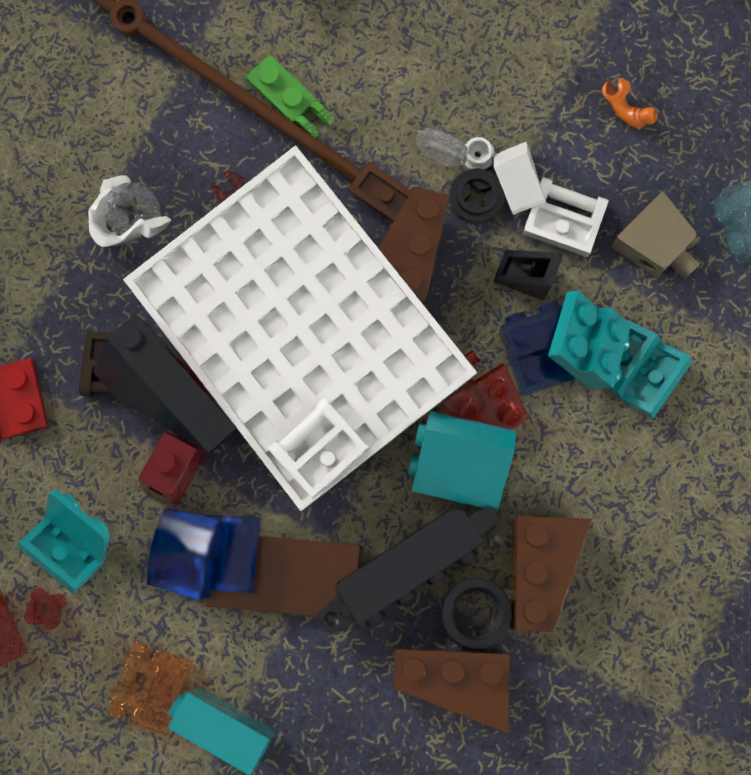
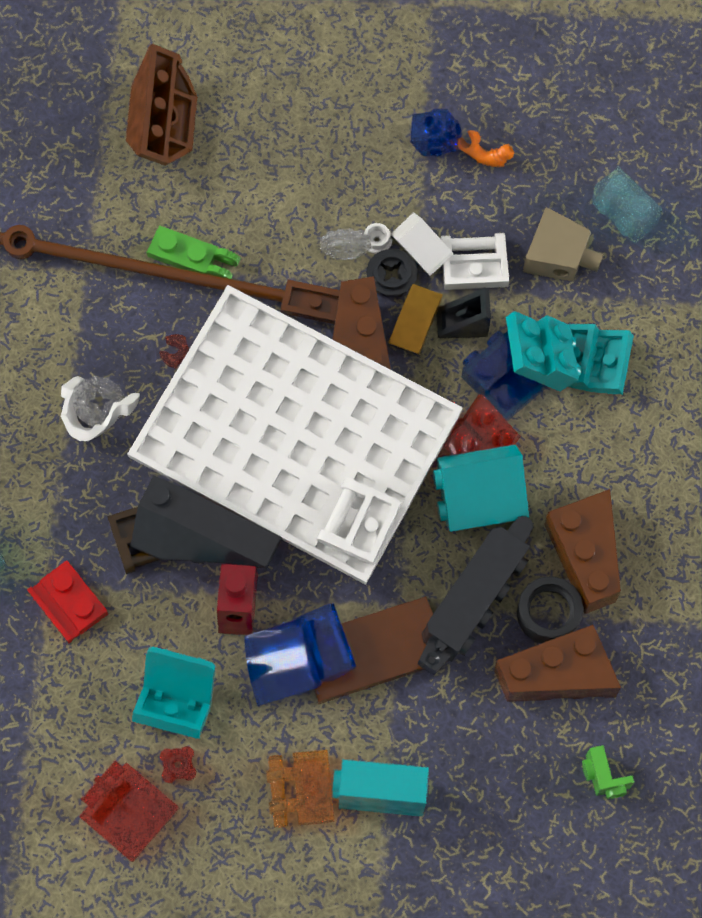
camera: 25 degrees left, 10 degrees down
(479, 253) = (415, 319): none -> pearl gold slope
(585, 66) = (435, 132): none -> clear blue brick

